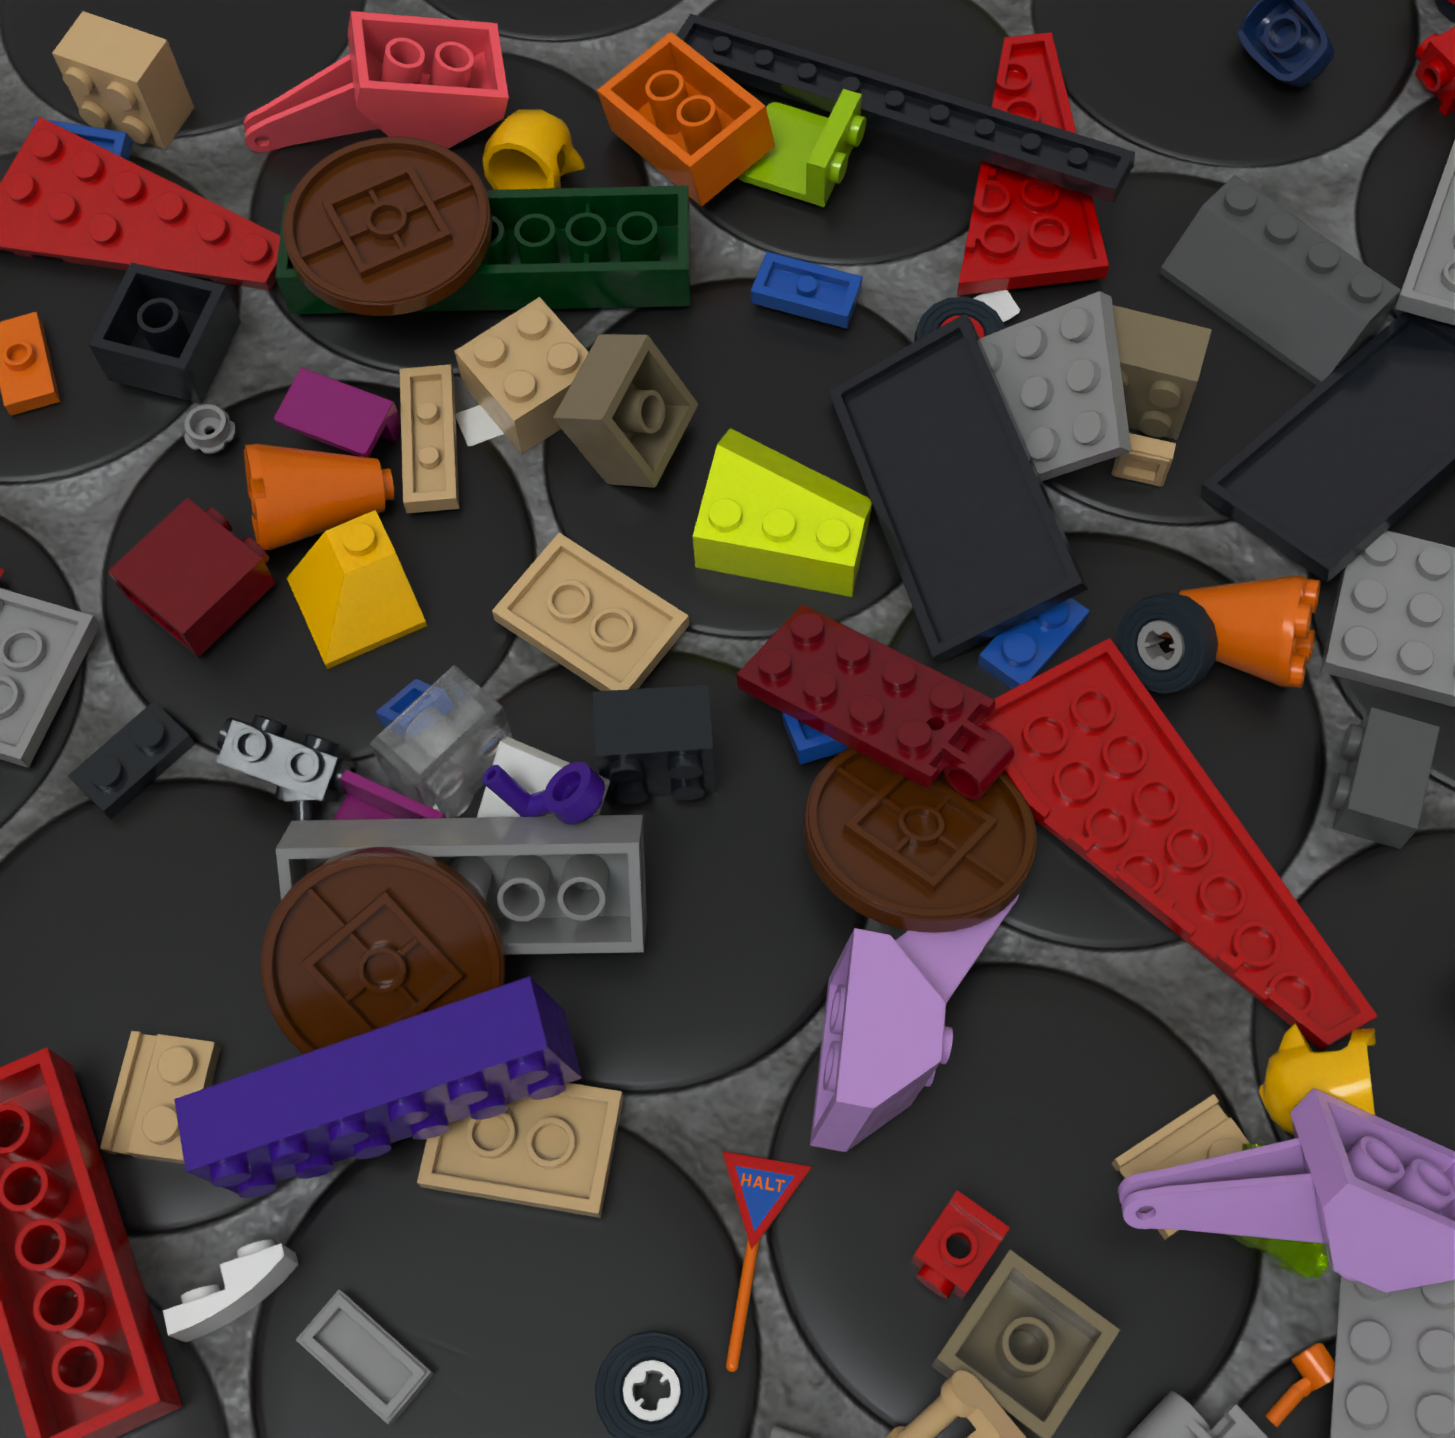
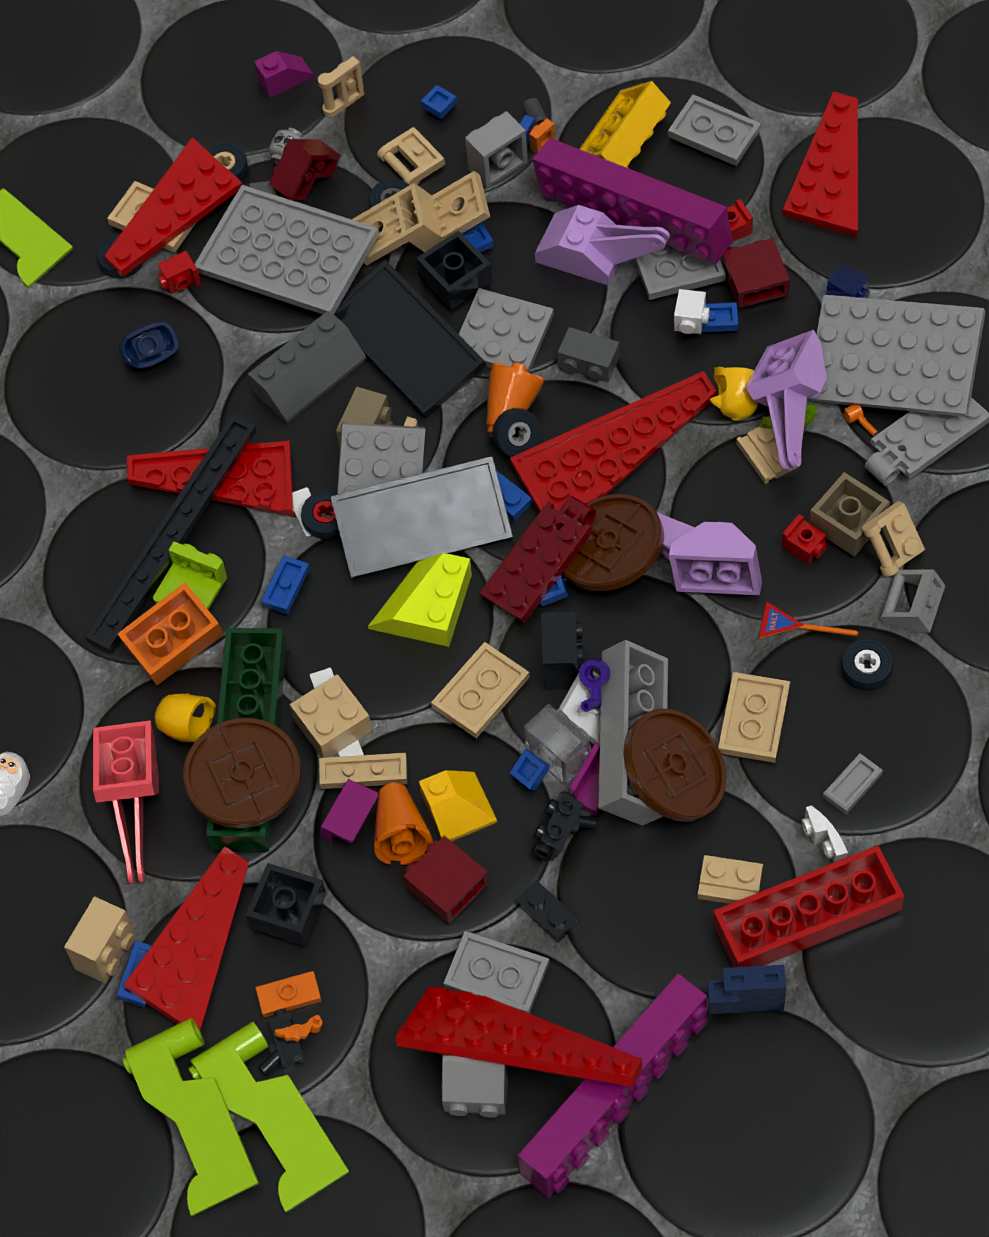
camera: 85 degrees left, 5 degrees down
(204, 419) = (342, 880): light grey plate -> none
(378, 1090) = (738, 759): dark purple brick -> none
(626, 410) = (367, 662): dark tan brick -> none

